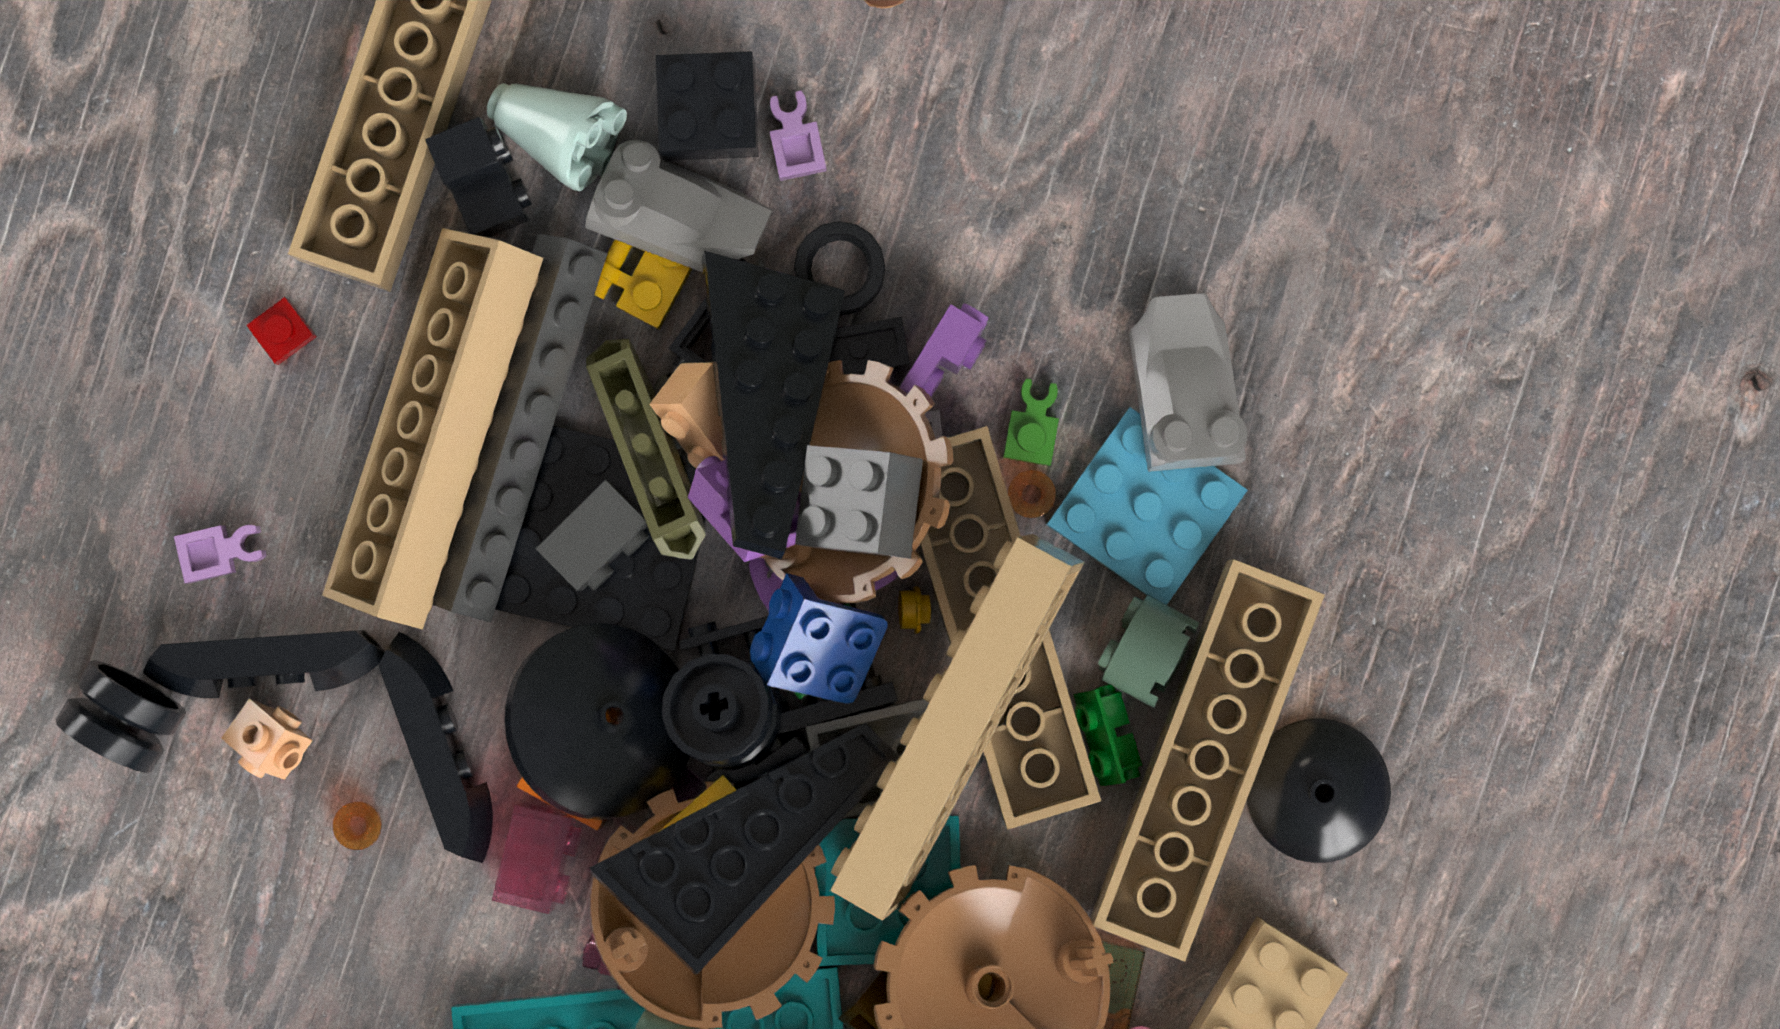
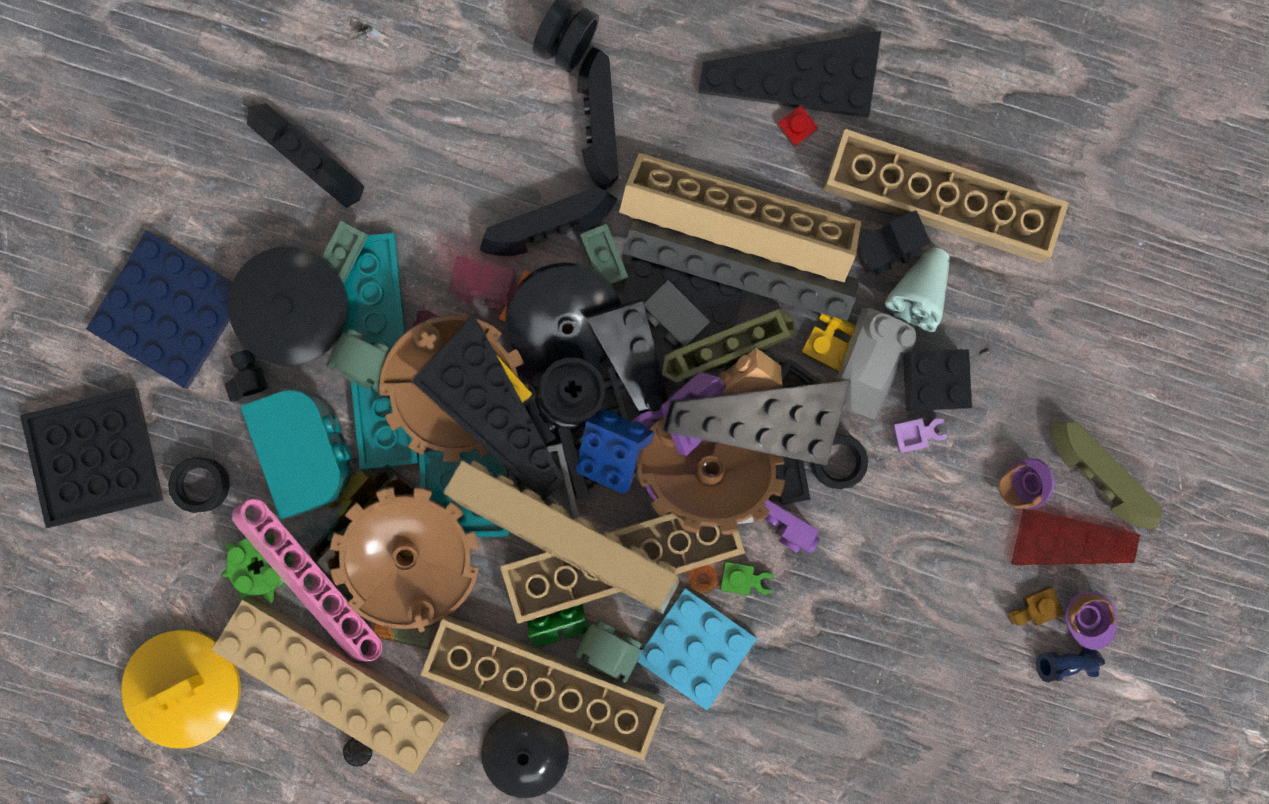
camera: 85 degrees right, 0 degrees up
(196, 297) = (816, 75): none -> black wing
(211, 552) = (663, 87): lavender plate -> none
(267, 739) = (552, 121): light nougat brick -> none
(343, 831) = (495, 169): clear orange plate -> none
(491, 654) = (604, 254): none -> sand green plate
(646, 612) = (631, 351): none -> black wing
(859, 501) = (698, 476): brick -> none
(913, 609) = (633, 507): yellow plate -> none
(1186, 385) = (770, 673): light grey slope -> none

